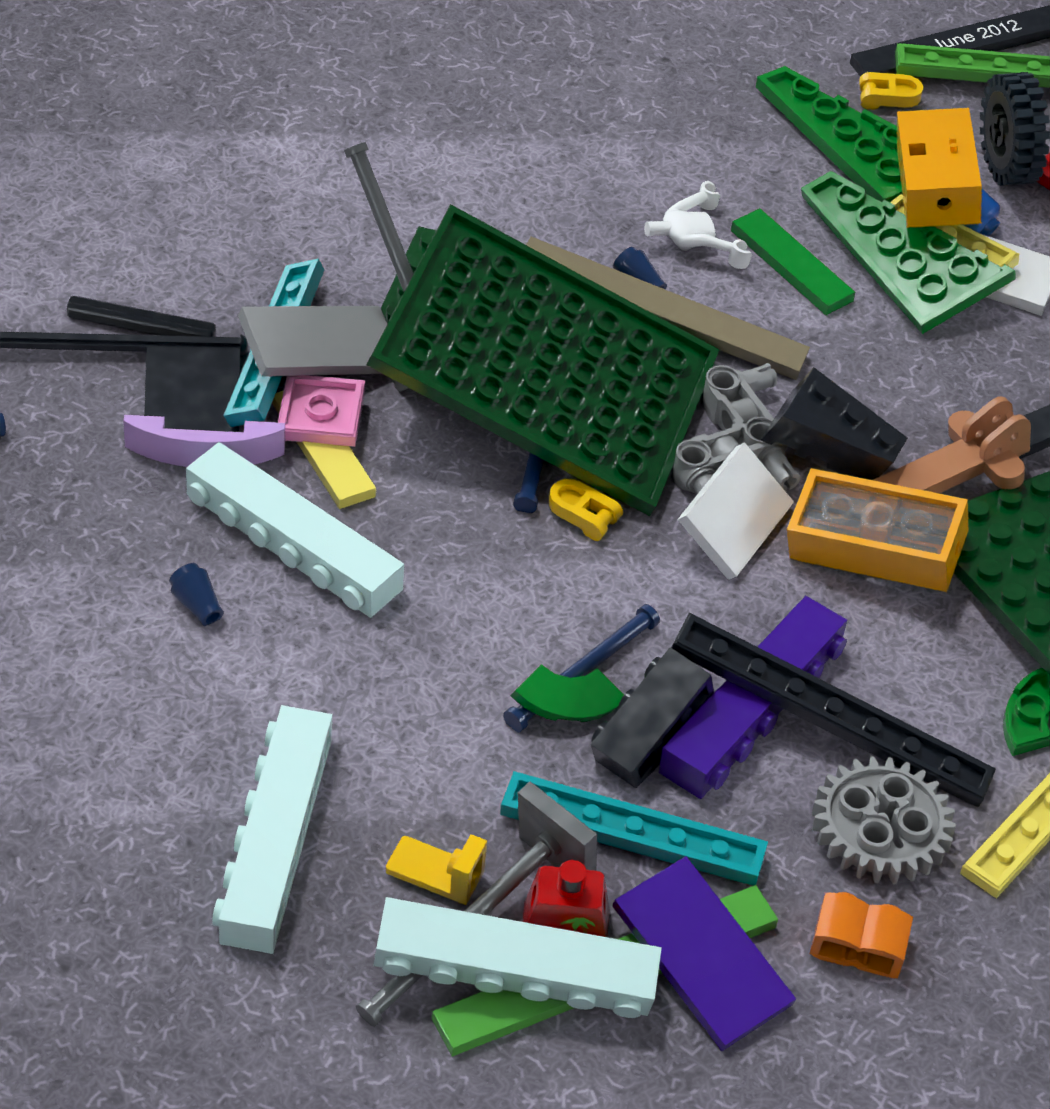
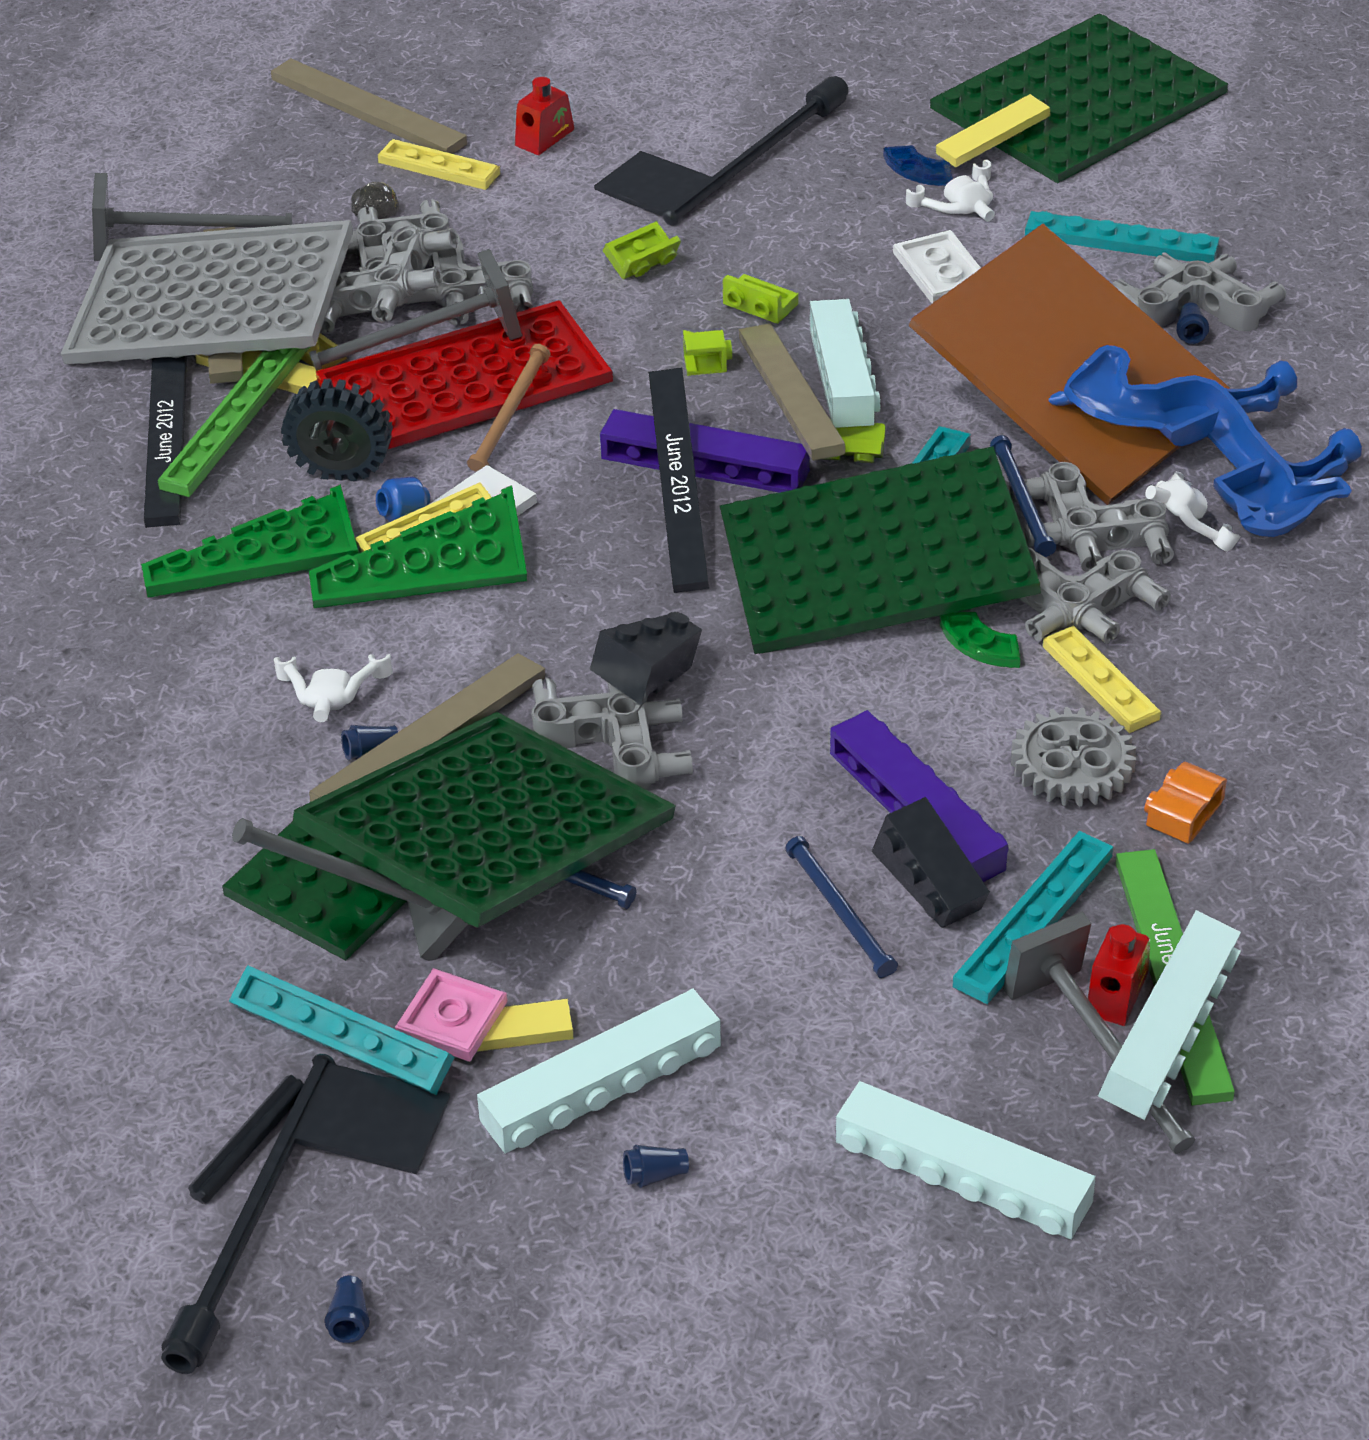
camera: 65 degrees left, 5 degrees down
(182, 447) = (438, 1153): lavender slope -> none
(312, 338) = (368, 988): light grey tile -> none
(437, 870) = (1047, 1053): yellow bracket -> none
(566, 697) = (879, 918): green tile -> none
(573, 499) = (641, 860): yellow plate -> none
(704, 953) = (1166, 898): dark purple tile -> none
(736, 511) = (707, 750): white tile -> none
(793, 261) = (397, 636): green tile -> none
(833, 709) = (956, 749): black tile -> none
(878, 529) = (773, 662): brick -> none
(889, 90) = (214, 500): yellow plate -> none
(938, 167) = (365, 490): light orange brick -> none
(982, 444) = (704, 598): nougat piece -> none

